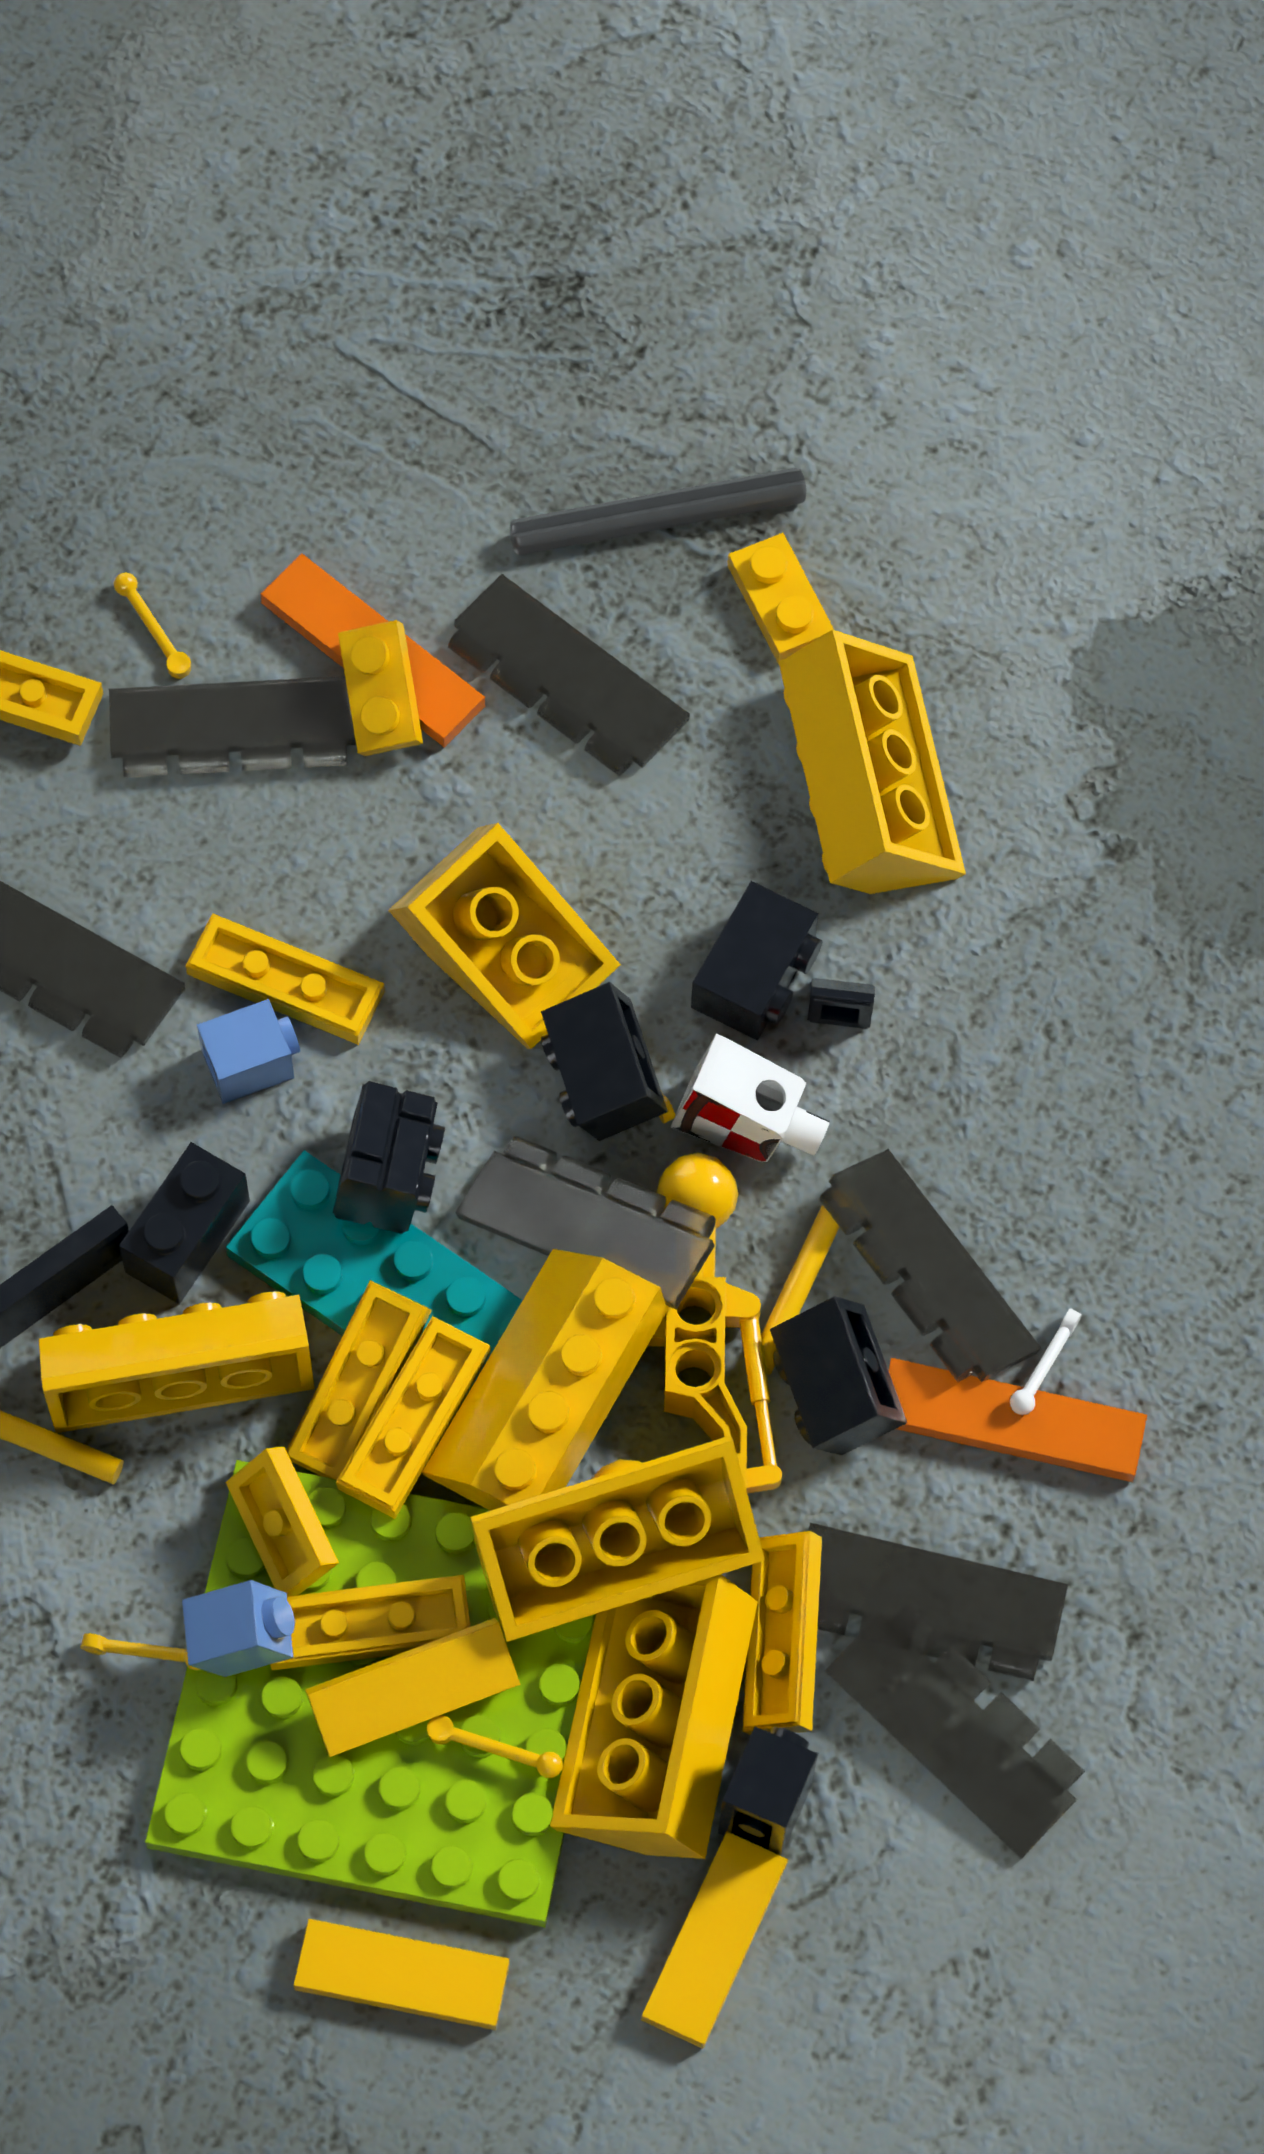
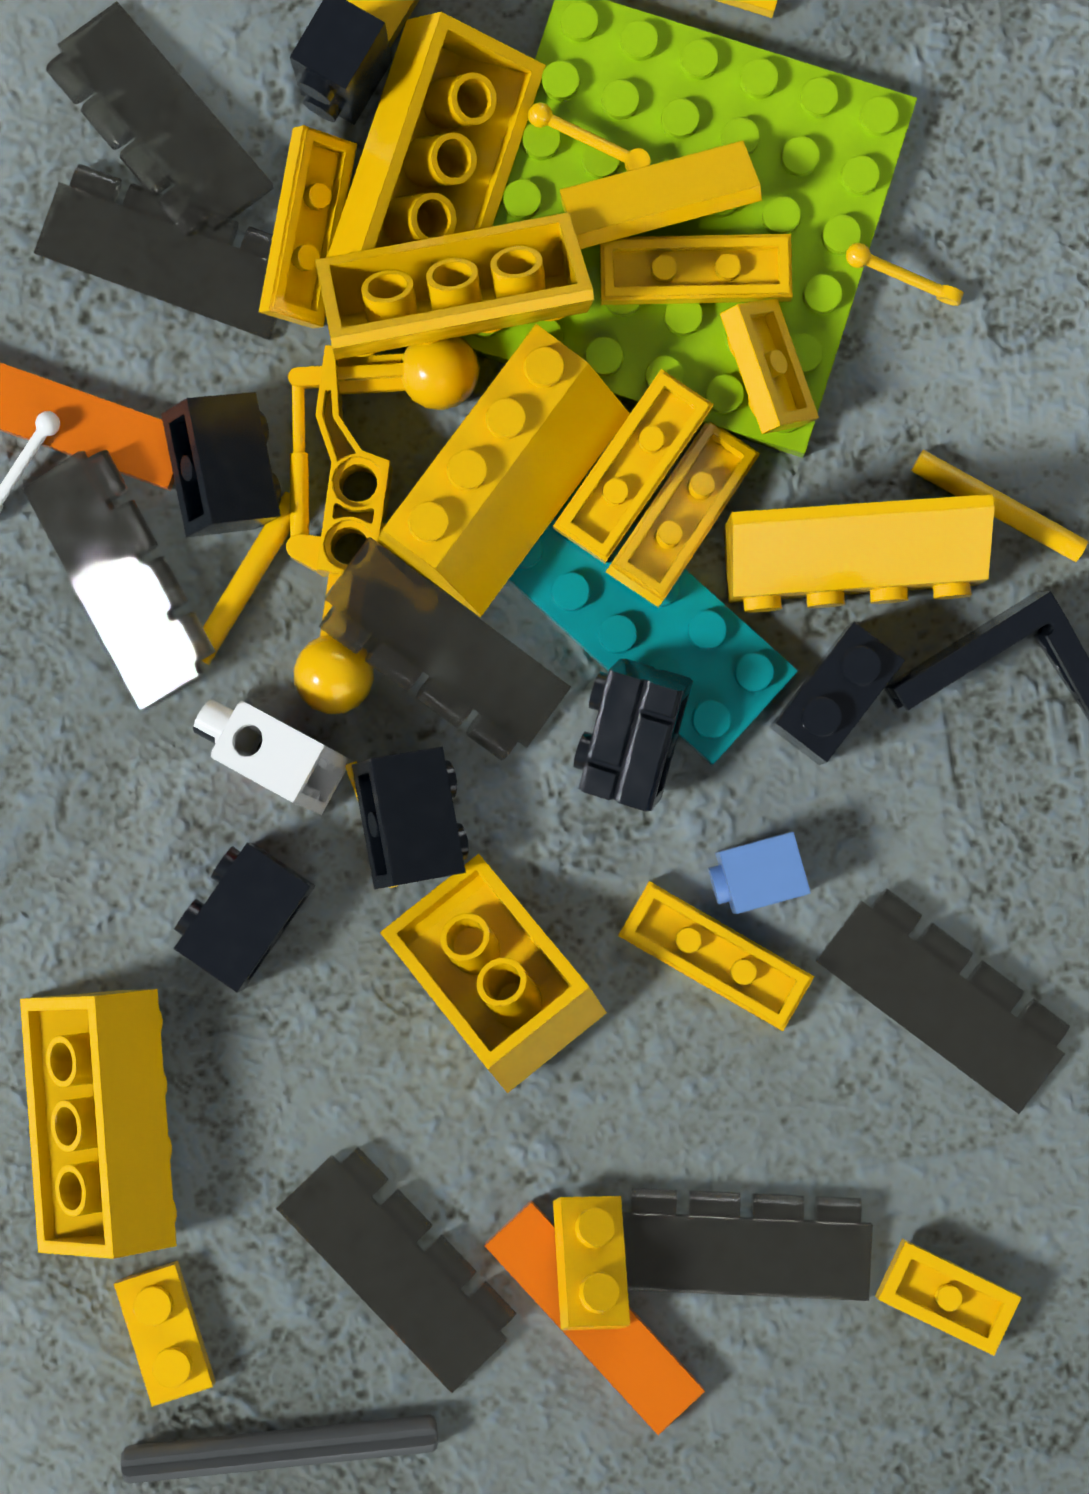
camera: 175 degrees left, 20 degrees up
(177, 663) = (796, 1324): yellow hinge -> none
(238, 1628) = (820, 258): medium blue brick -> none
(841, 1003) = (163, 872): black slope -> none

